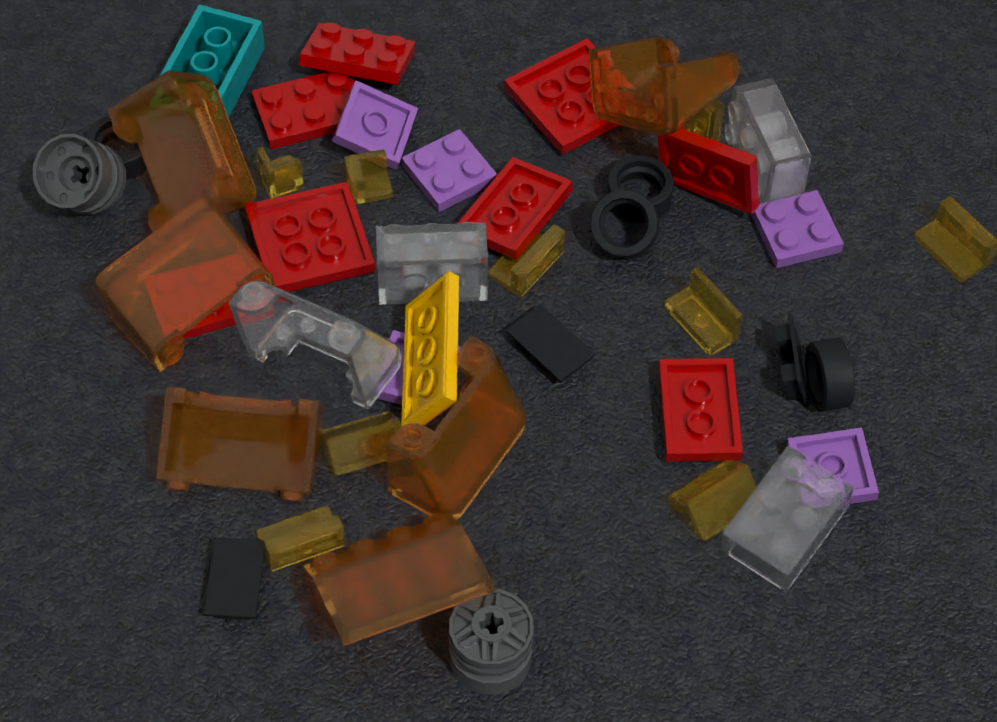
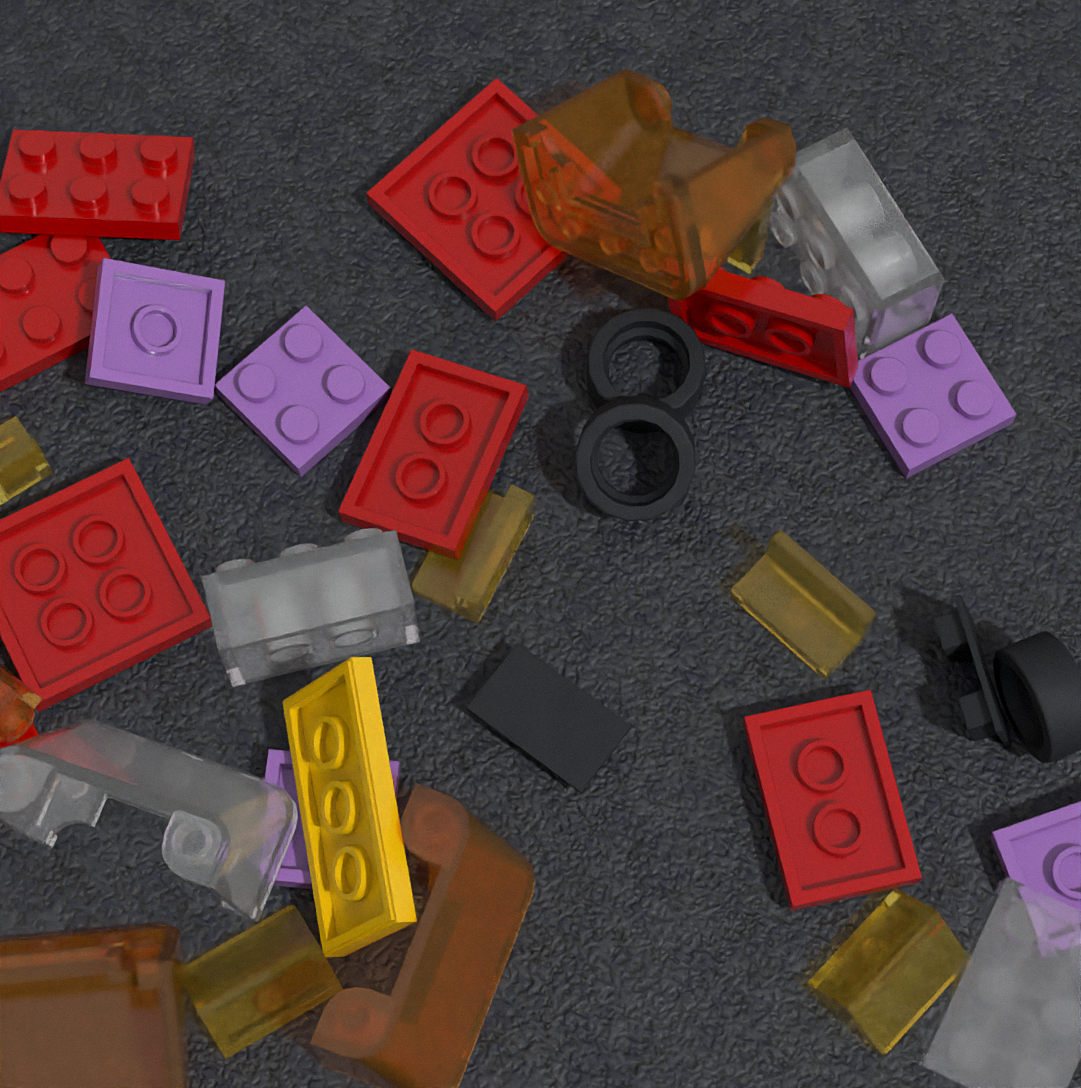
camera: 10 degrees left, 15 degrees up
(368, 176) = (164, 438): clear yellow panel -> none

